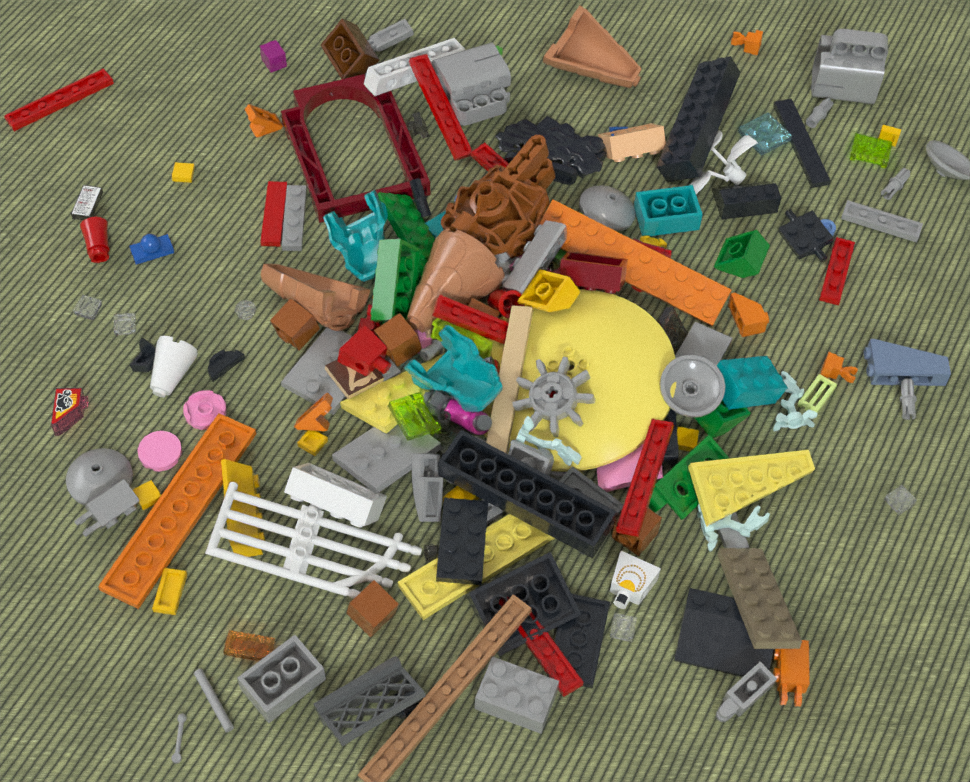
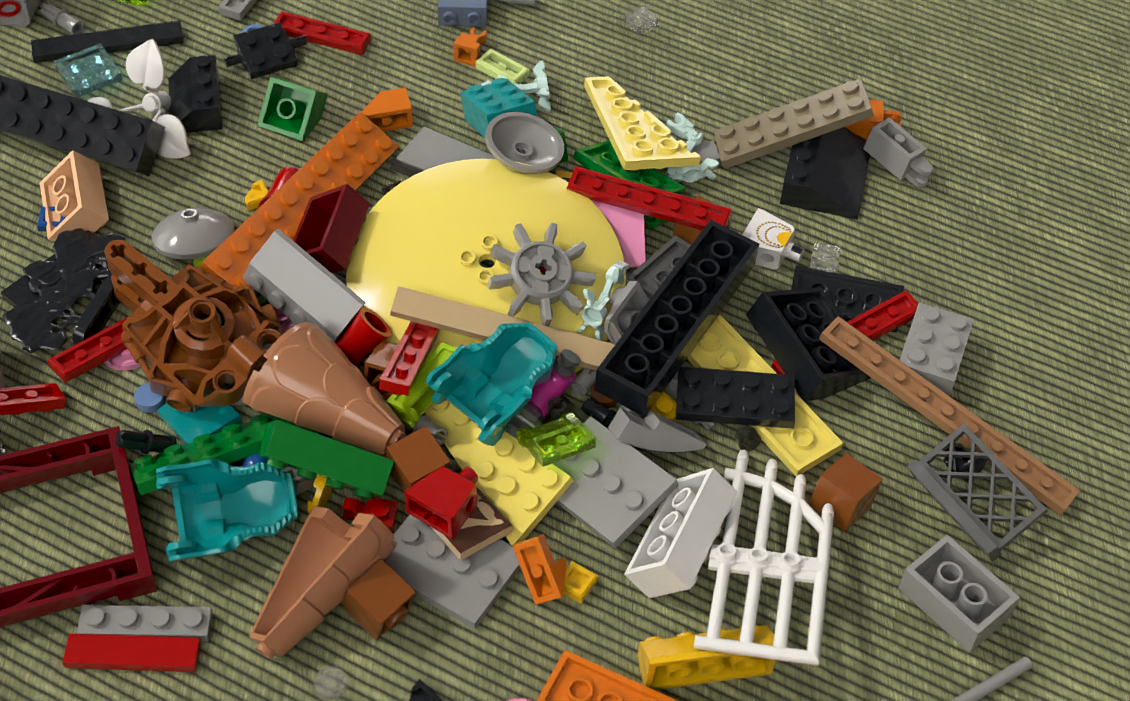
camera: 90 degrees left, 5 degrees down
(248, 645) = (910, 642): clear orange plate -> none
(549, 292) = (371, 272): yellow slope -> none
(667, 210) = (213, 168): teal brick -> none

